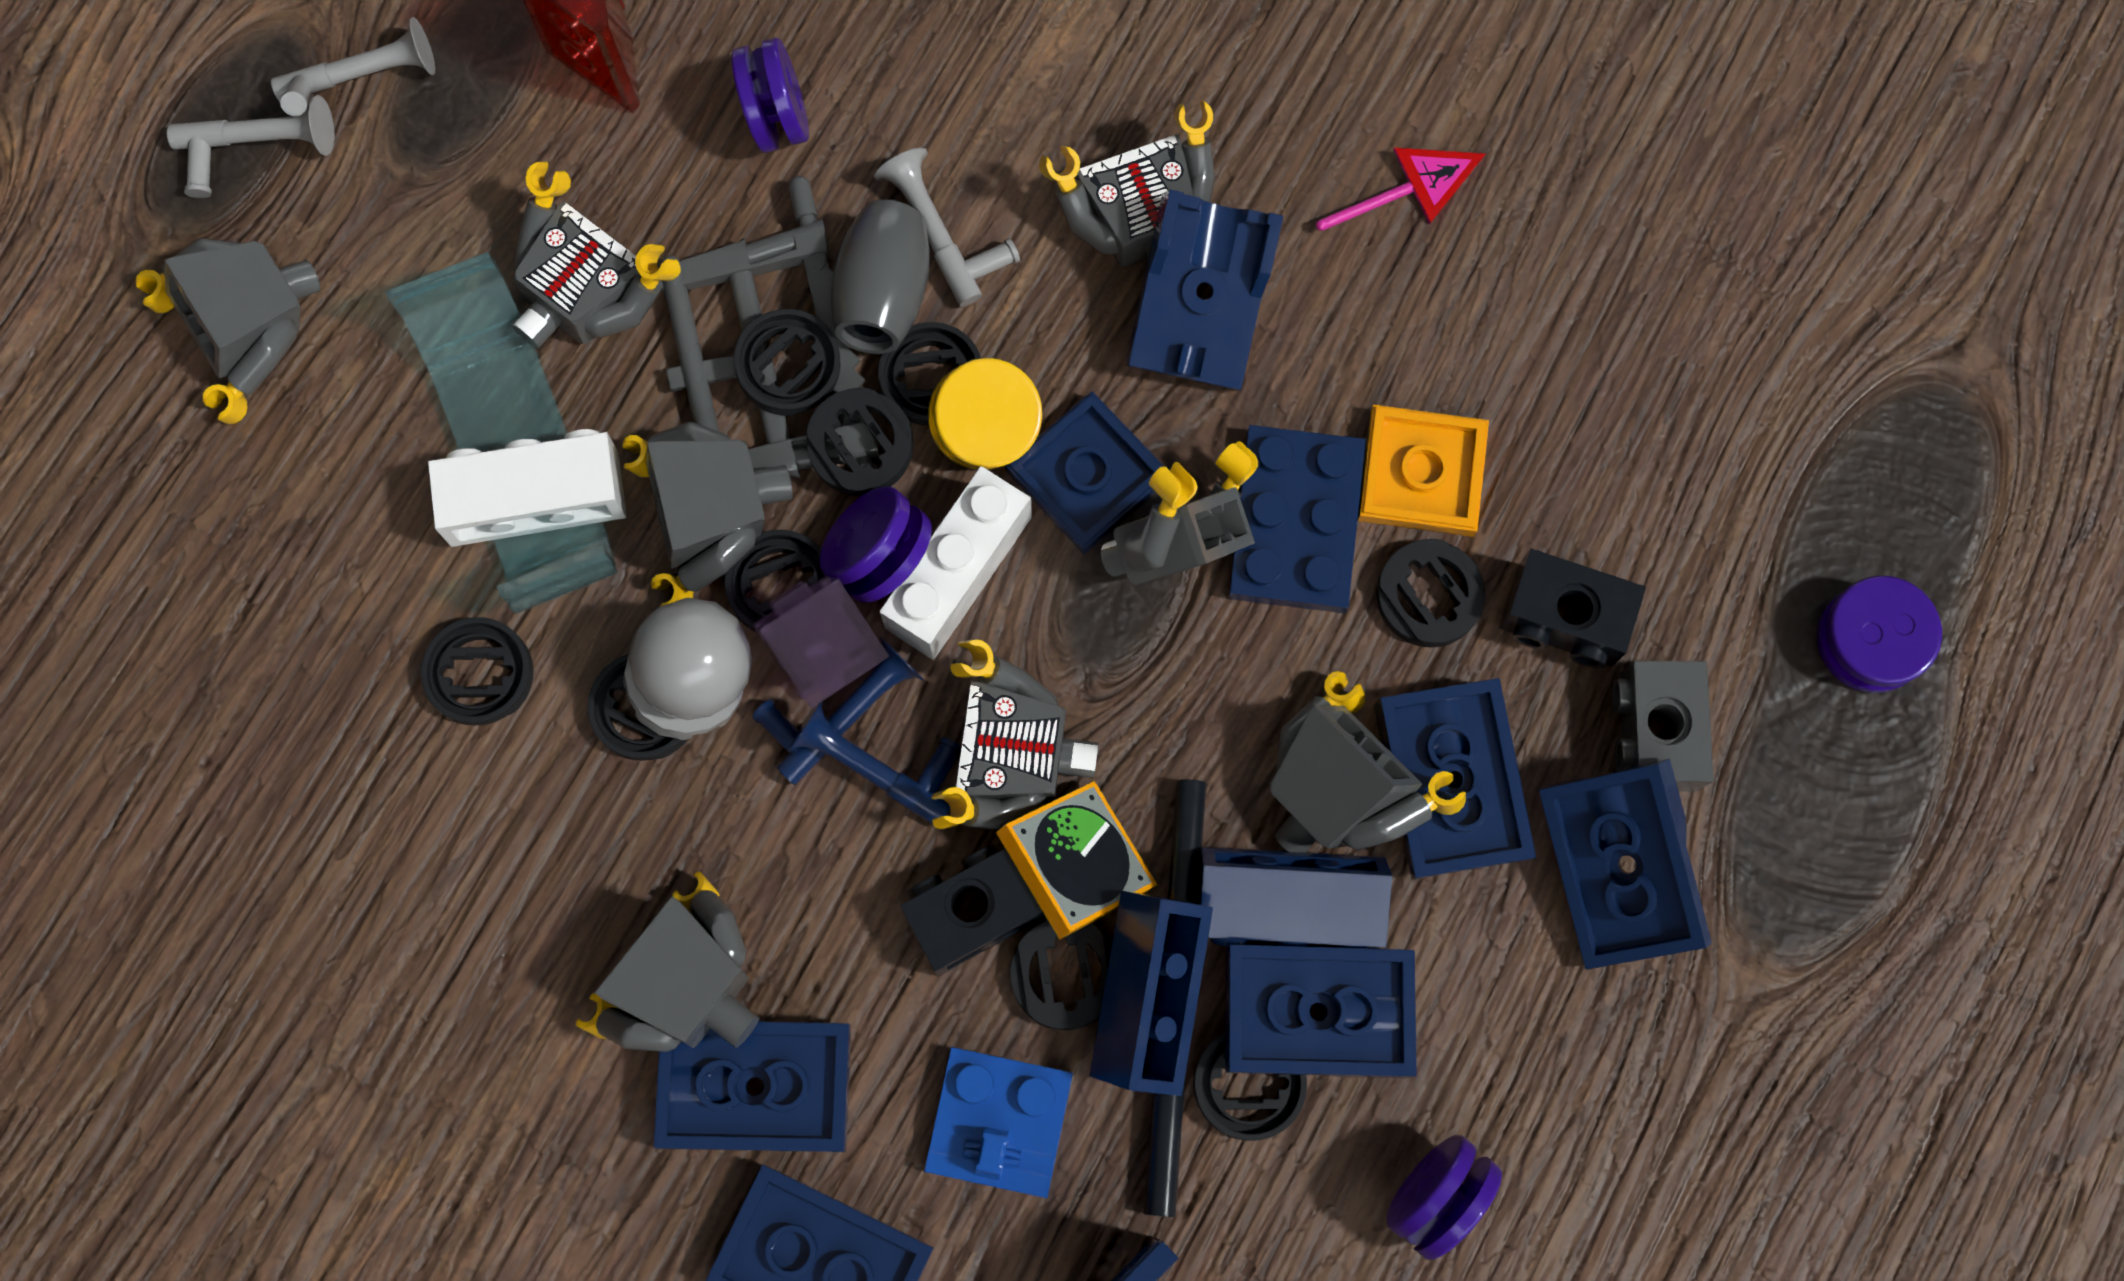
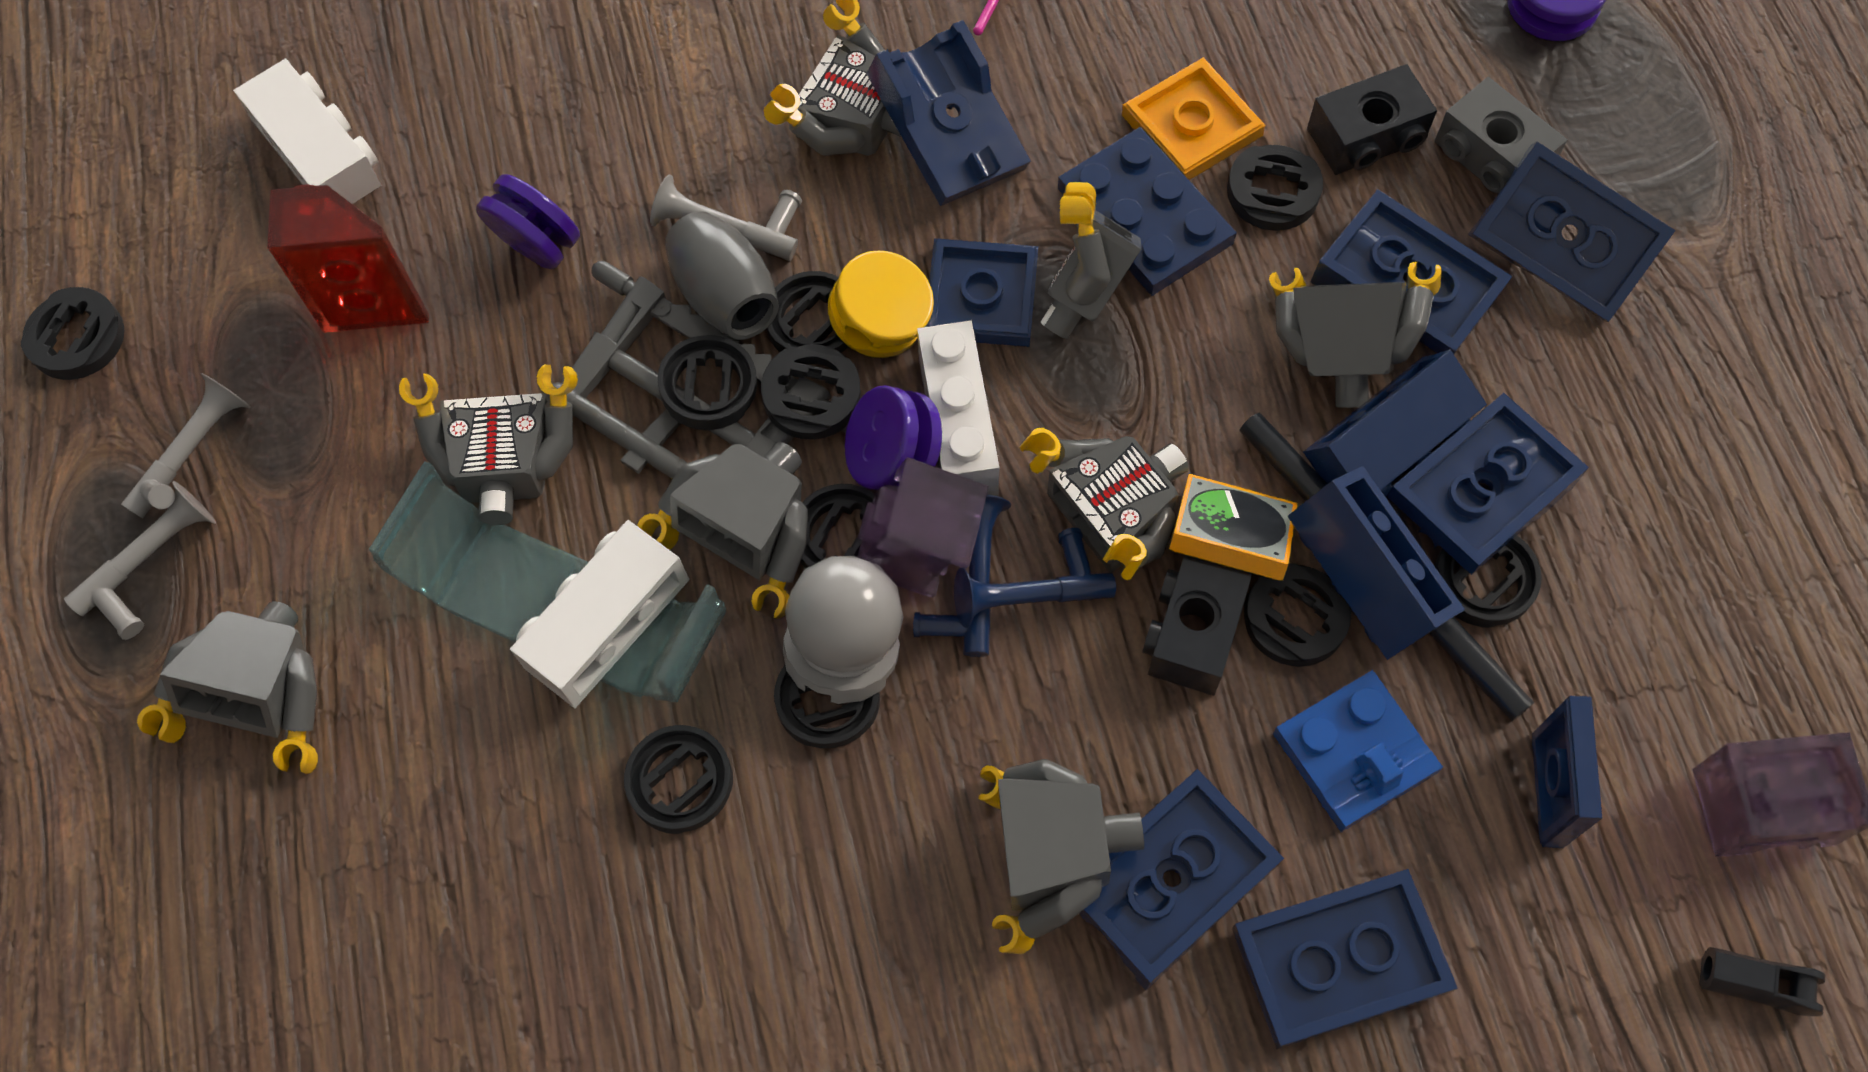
camera: 40 degrees left, 10 degrees down
(1444, 1197) = (1688, 524): dark purple head -> none

